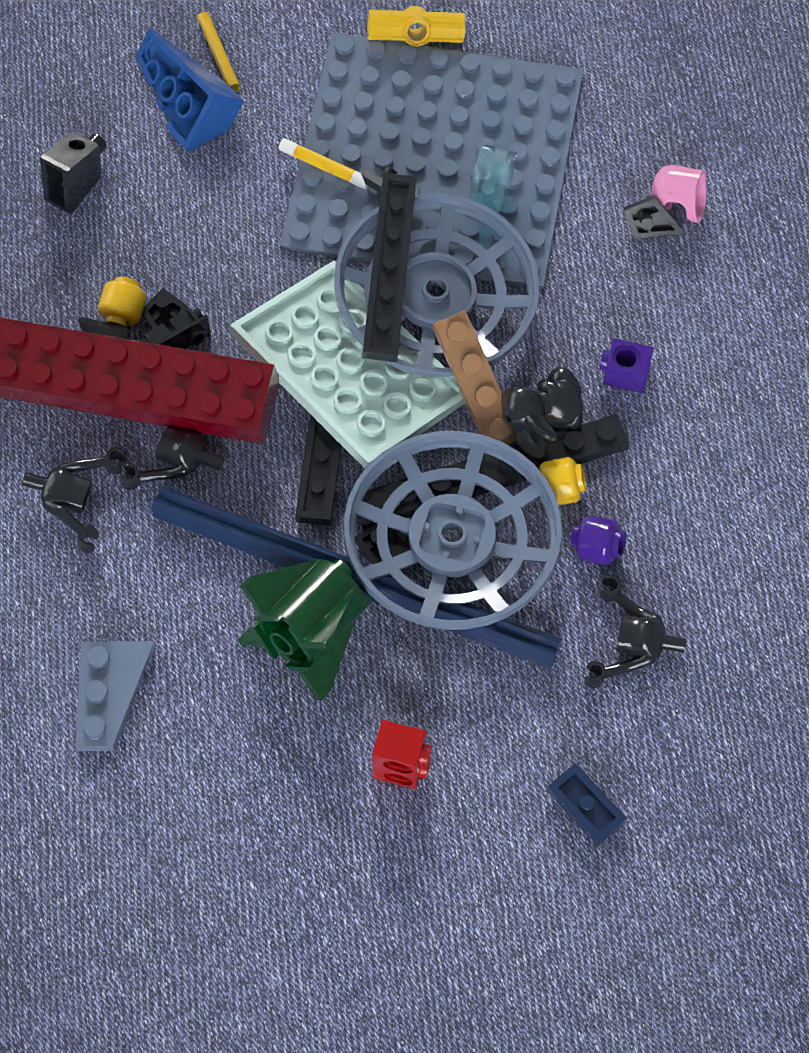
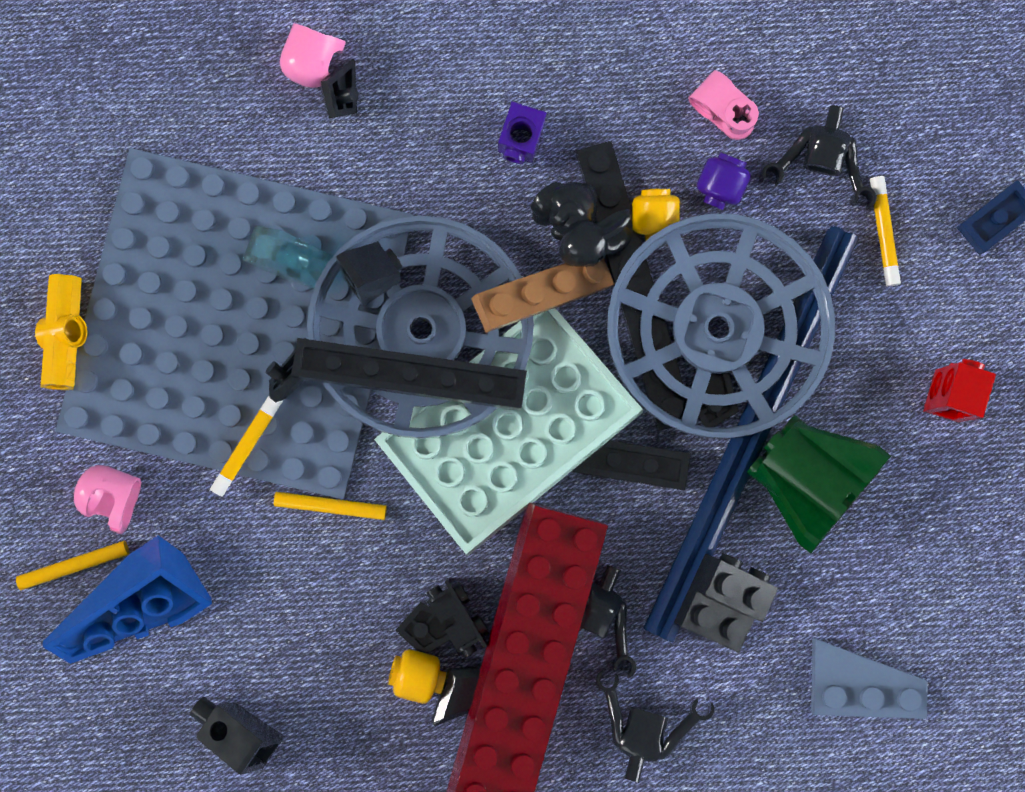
camera: 95 degrees left, 20 degrees up
(189, 553) = (725, 601): none -> black plate
(273, 236) = (330, 505): none -> yellow bar
(279, 67) = (107, 493): none -> bright pink helmet
(479, 225) = (369, 270): none -> black slope
(563, 698) = (885, 232): none -> yellow bar
(673, 541) = (721, 102): none -> bright pink piece

